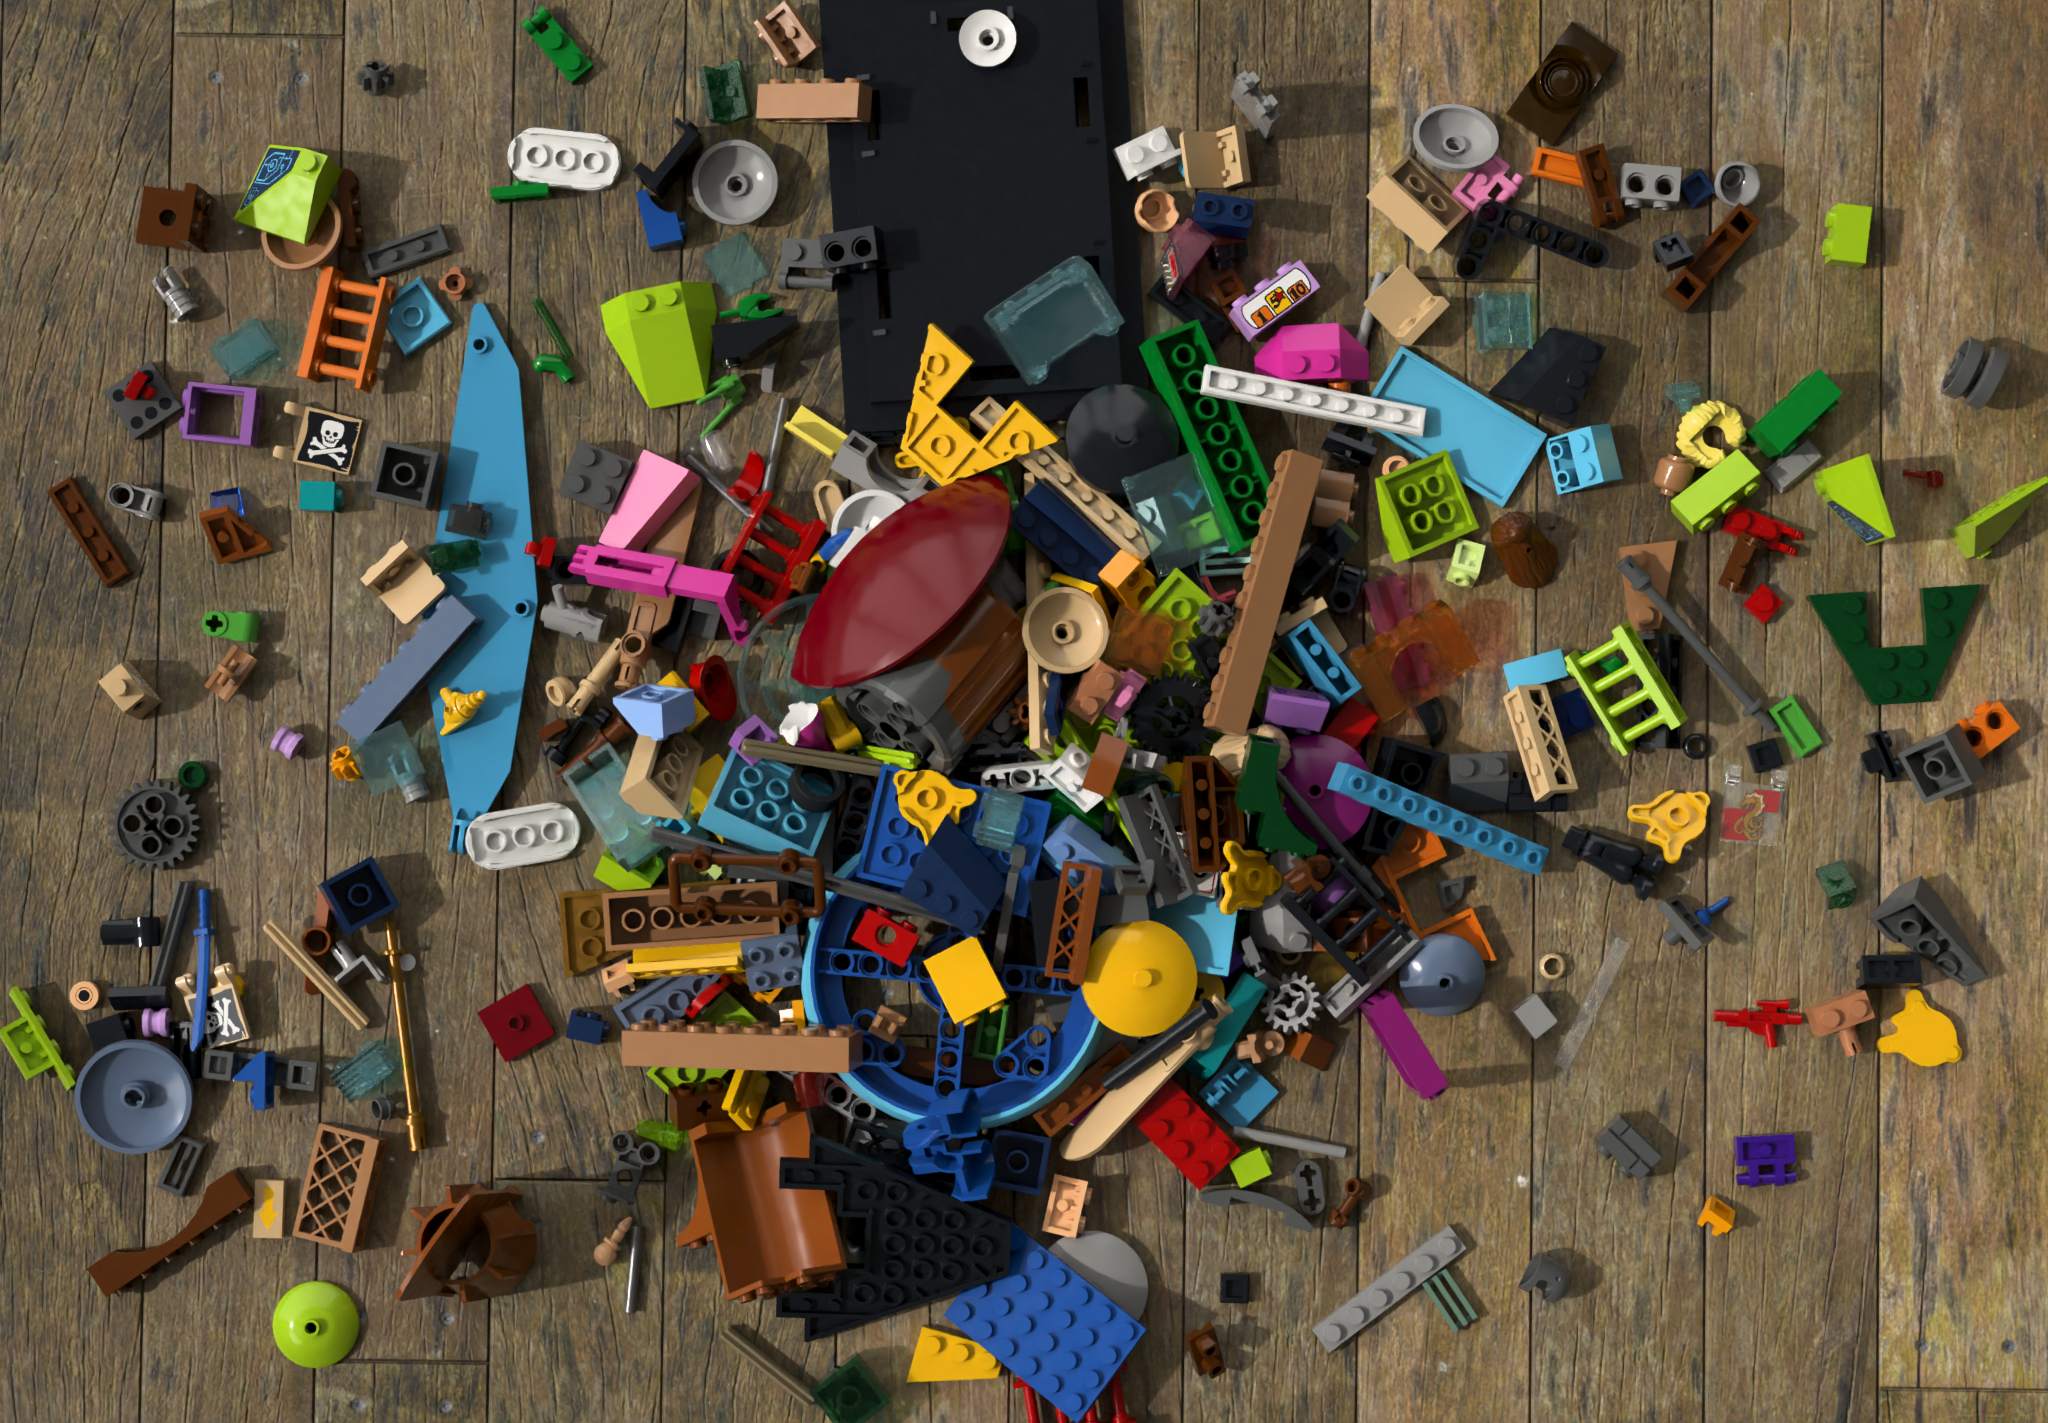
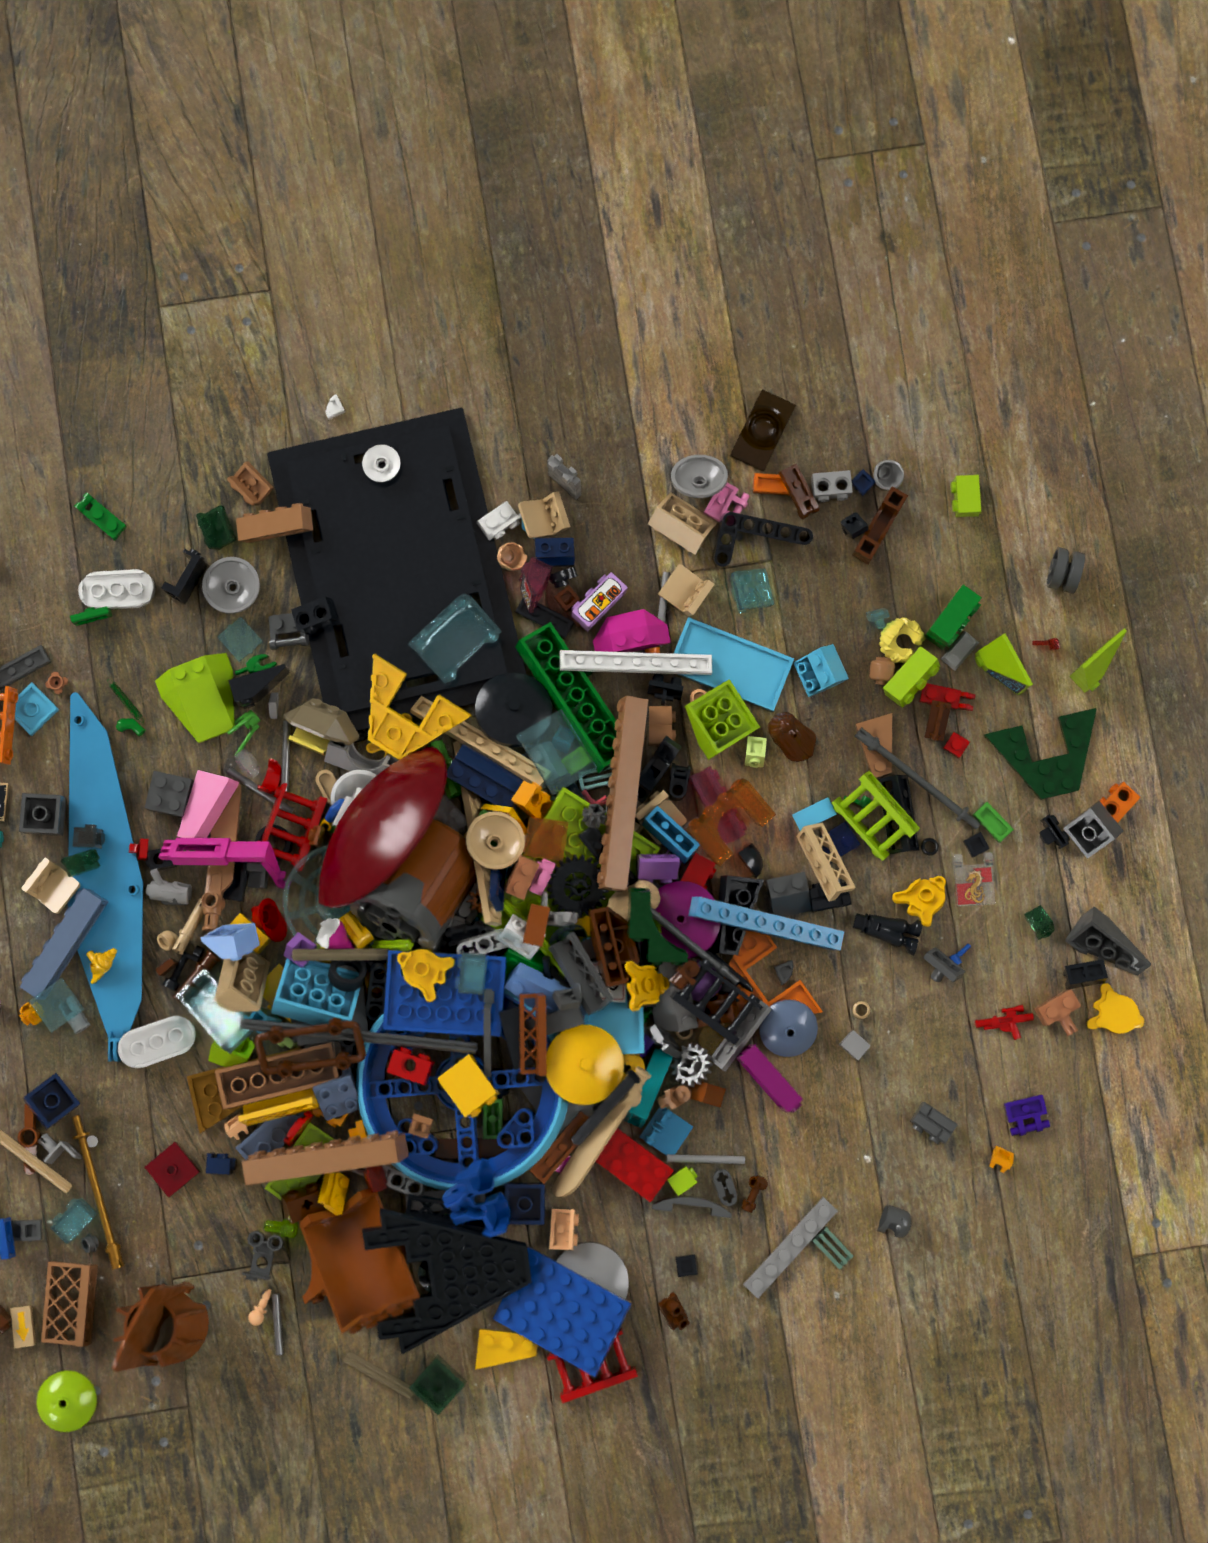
camera: 10 degrees left, 5 degrees down
(661, 227) = (187, 623): blue arch -> none
(838, 409) = (323, 720): none -> dark tan wedge
(955, 880) = (449, 1019): dark blue wedge -> none
(1552, 376) = (790, 620): black wedge -> none
(1592, 1003) = (892, 1030): clear axle -> none

